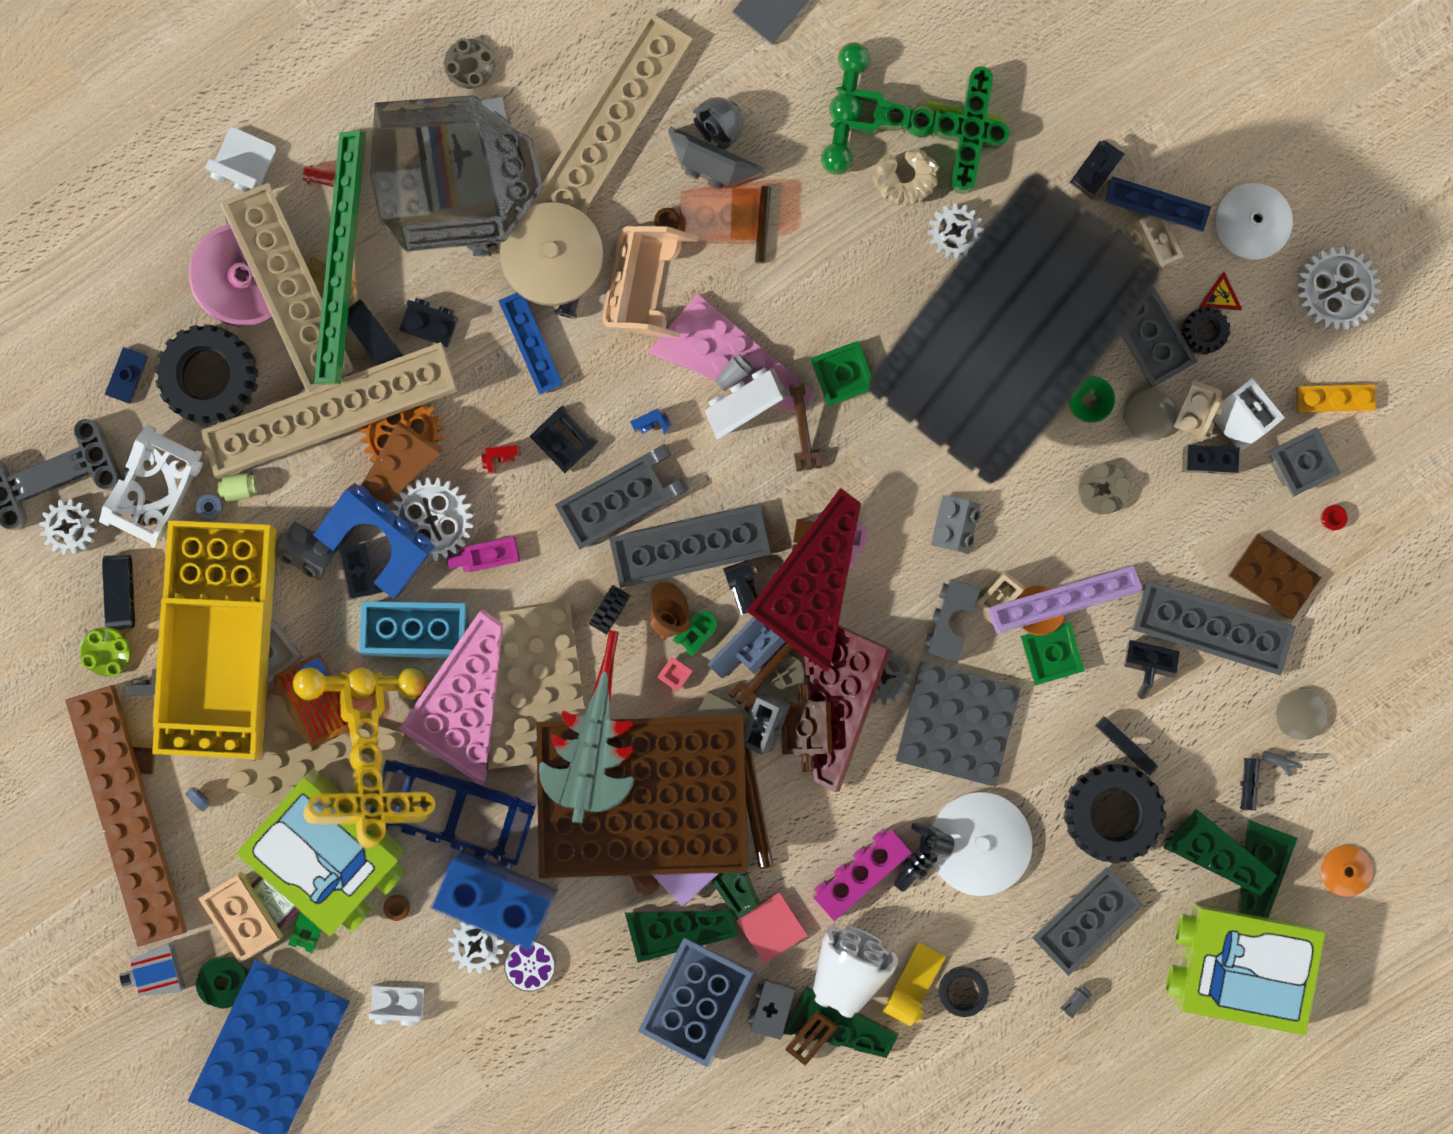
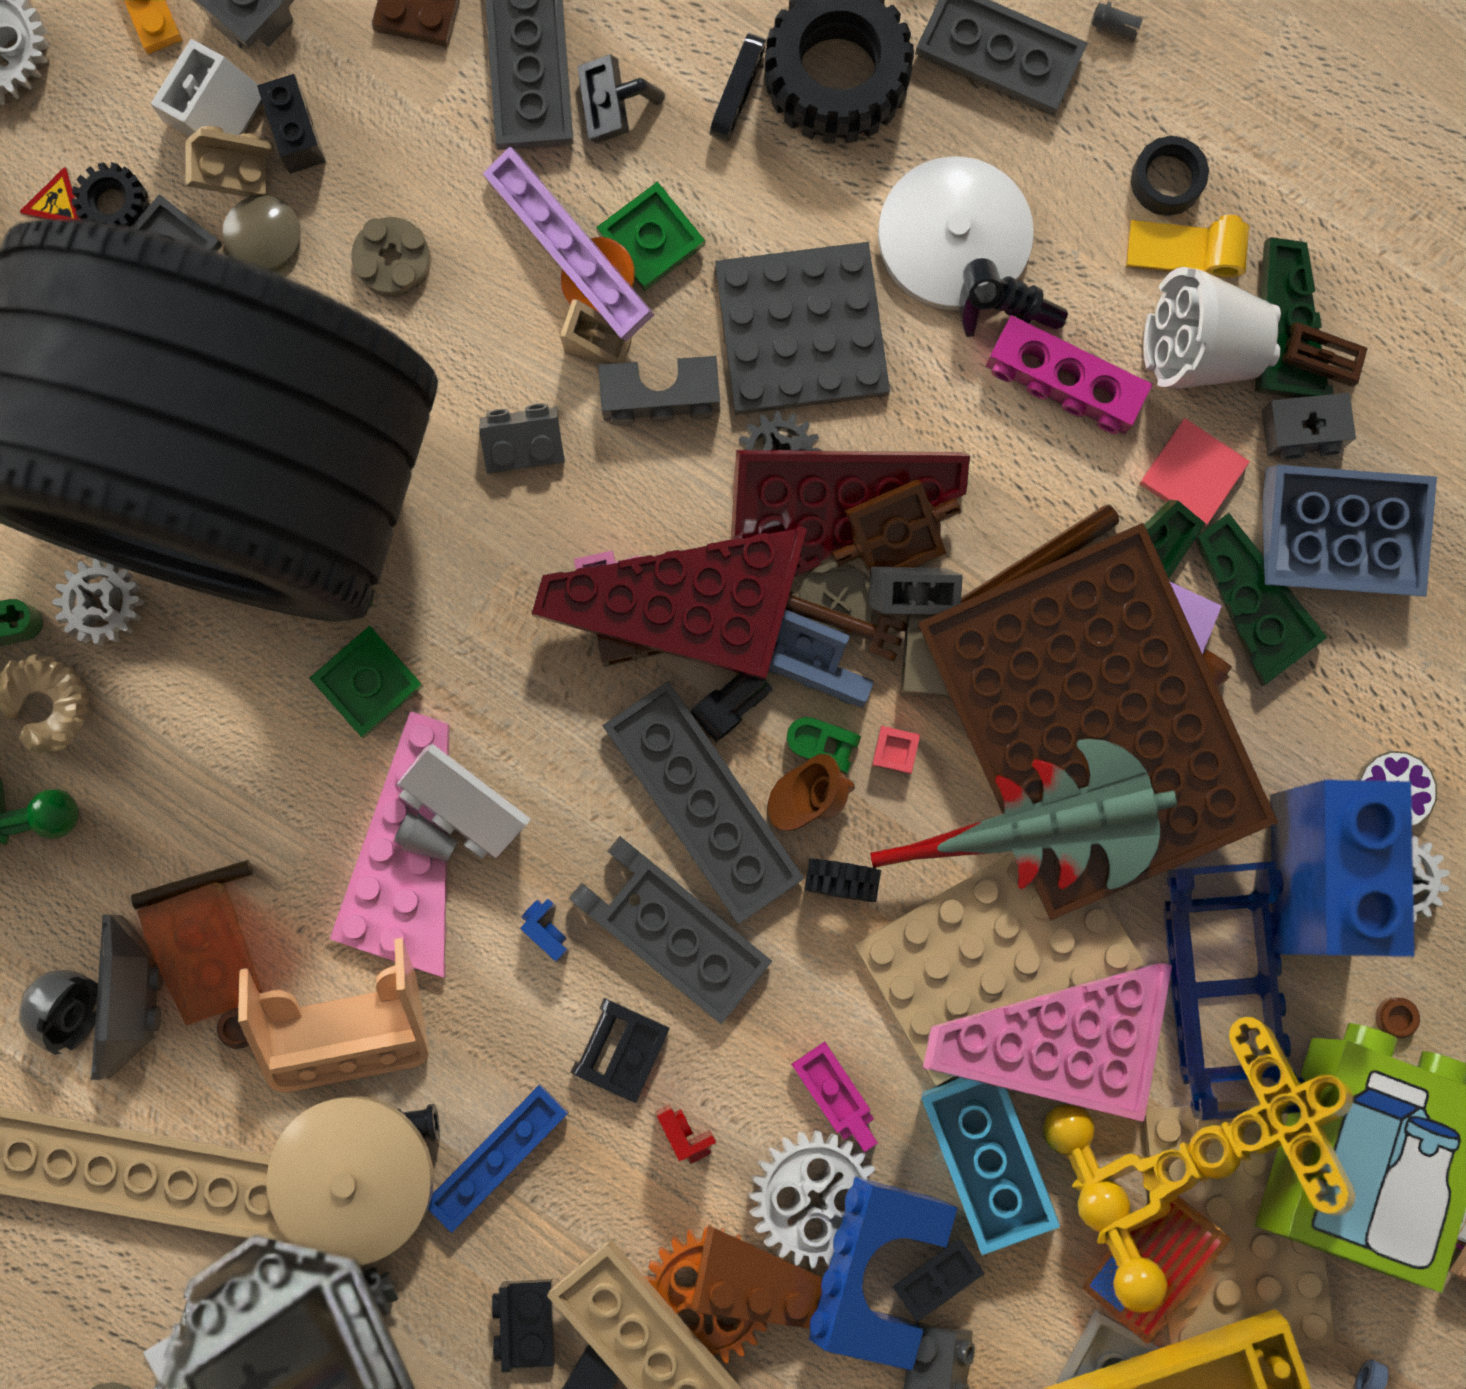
camera: 115 degrees left, 5 degrees down
(806, 453) = (503, 687): reddish brown hinge -> none

